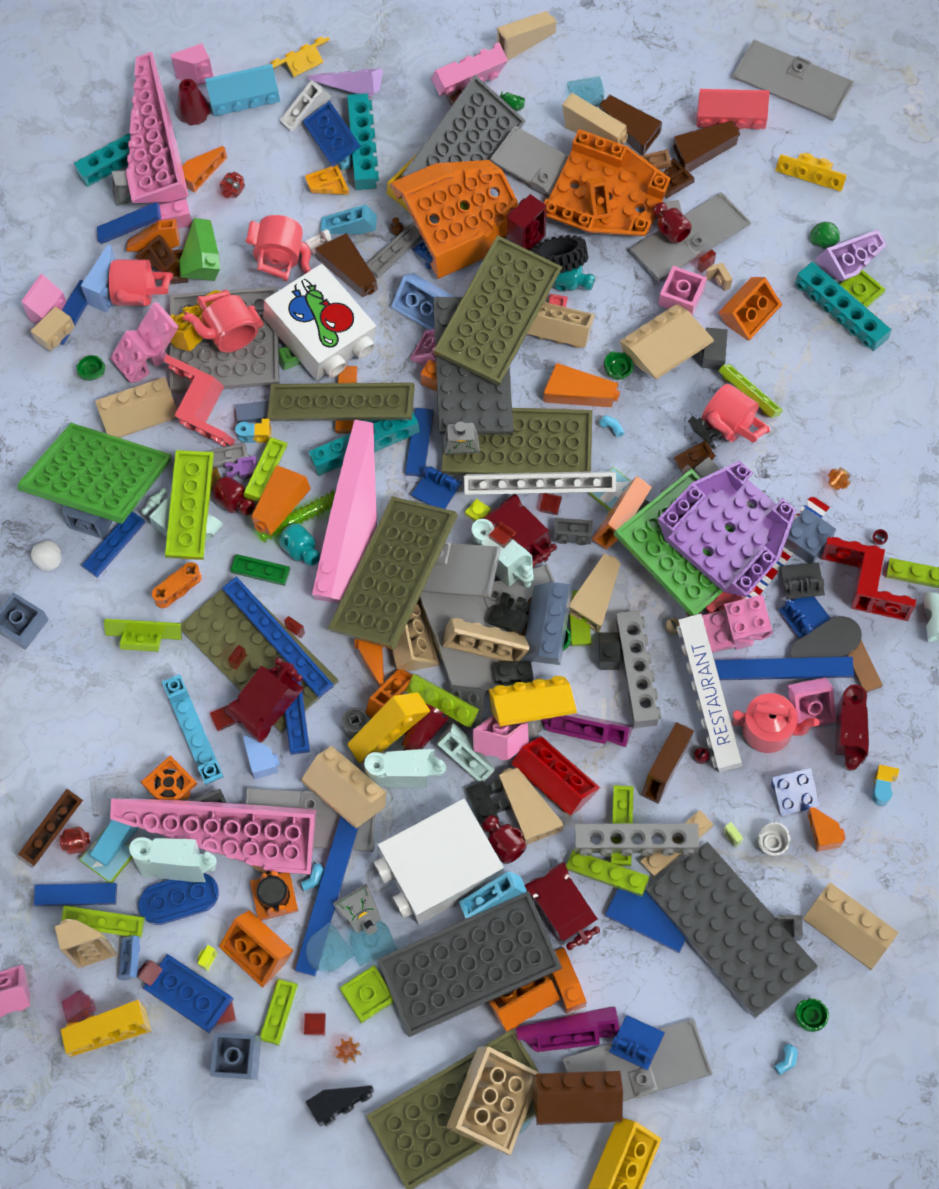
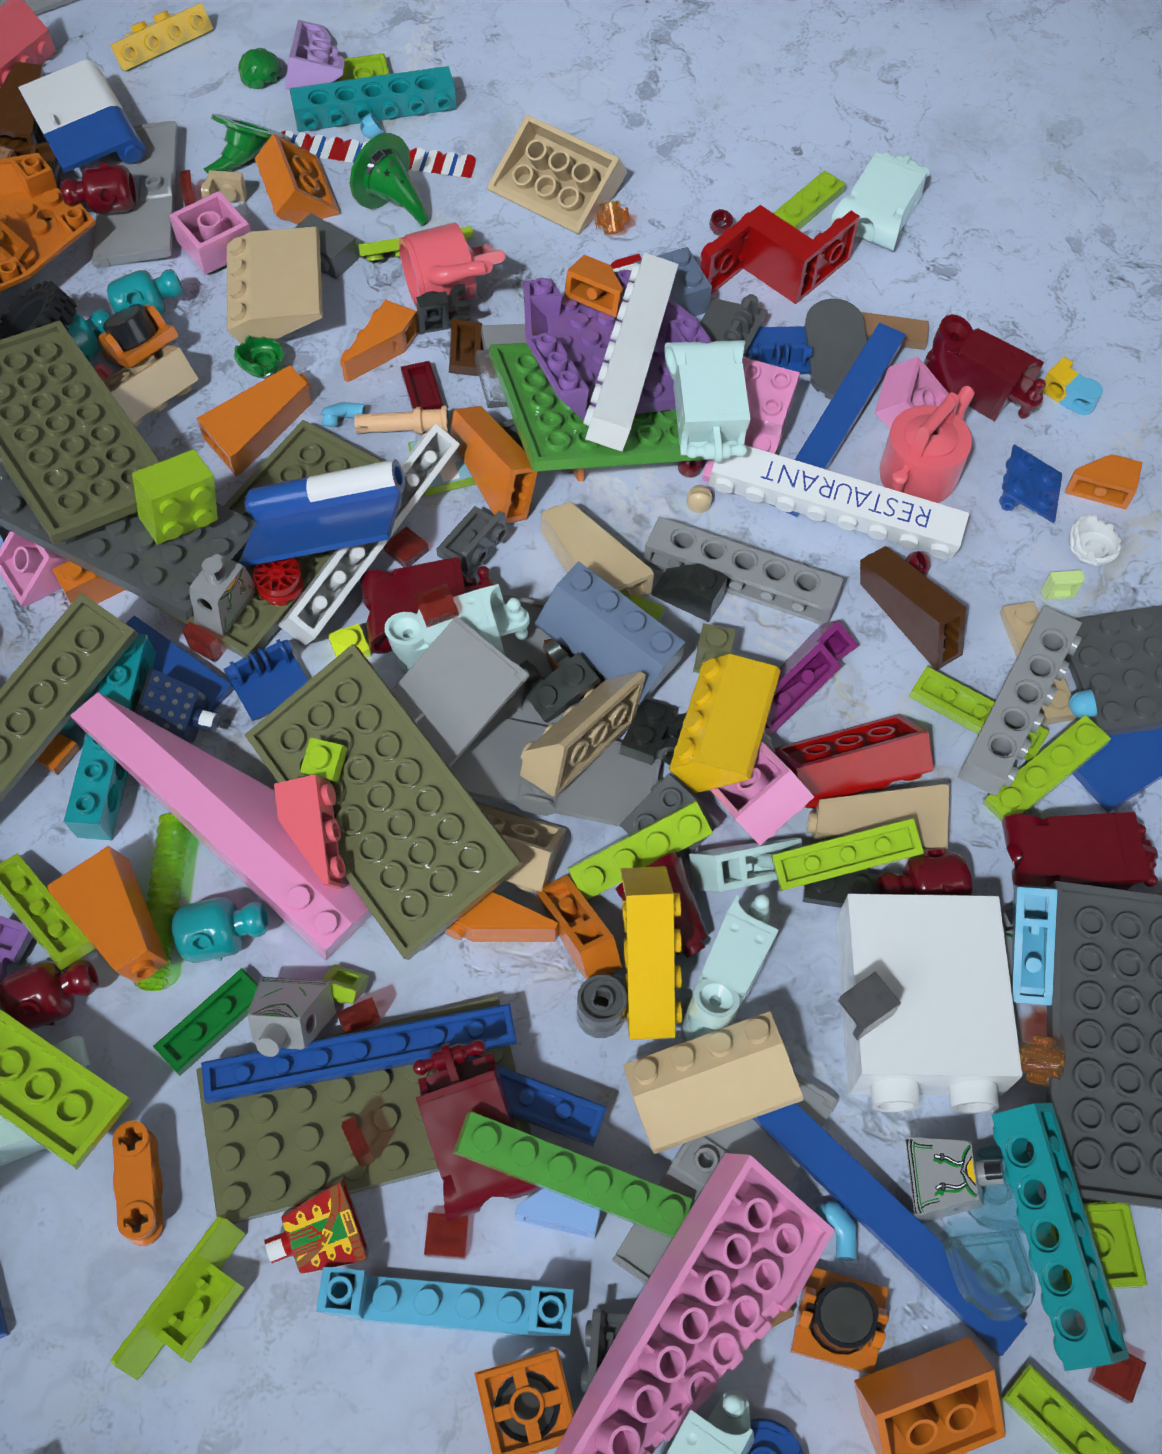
camera: 65 degrees left, 5 degrees down
(195, 666) = (320, 1231): none -> torso
(267, 748) = (571, 1175): none -> bright green plate
(276, 597) = (289, 1013): none -> light grey torso
(305, 612) = (346, 983): none -> lime plate
(356, 967) = (1089, 1294): none -> teal brick
(362, 550) = (309, 819): none -> coral slope
(392, 458) = (175, 706): none -> dark blue torso
(395, 536) = (324, 759): none -> lime plate
(407, 828) = (869, 1004): none -> flat silver panel
(431, 922) = (1042, 1060): none -> clear orange gear
(436, 447) = (202, 642): none -> clear red tile
(487, 459) = (279, 581): none -> red wheel
(489, 386) = (175, 496): none -> lime brick
(492, 793) = (847, 854): none -> lime plate
(529, 455) = (323, 512): none -> blue door
(578, 679) = (713, 643): none -> olive brick
(588, 302) = (135, 335): none -> piece
(619, 287) = (143, 289): none -> teal piece
(629, 463) = (416, 421): none -> light nougat pin
(654, 453) = (421, 386): none -> dark red tile
(656, 872) = (1083, 704): none -> medium azure hinge
(668, 414) = (382, 339): none -> orange slope
(712, 592) = (709, 397): none -> light aqua piece
(715, 178) = (81, 116): none -> door
(722, 538) = (631, 353): none -> white brick
(764, 261) = (243, 142): none -> green piece
(766, 495) = (594, 285): none -> orange slope
(777, 348) = (383, 176): none -> green piece
(806, 333) = (347, 151): none -> sticker
(822, 318) = (370, 126): none -> medium azure hinge
(851, 433) = (556, 175): none -> tan slope

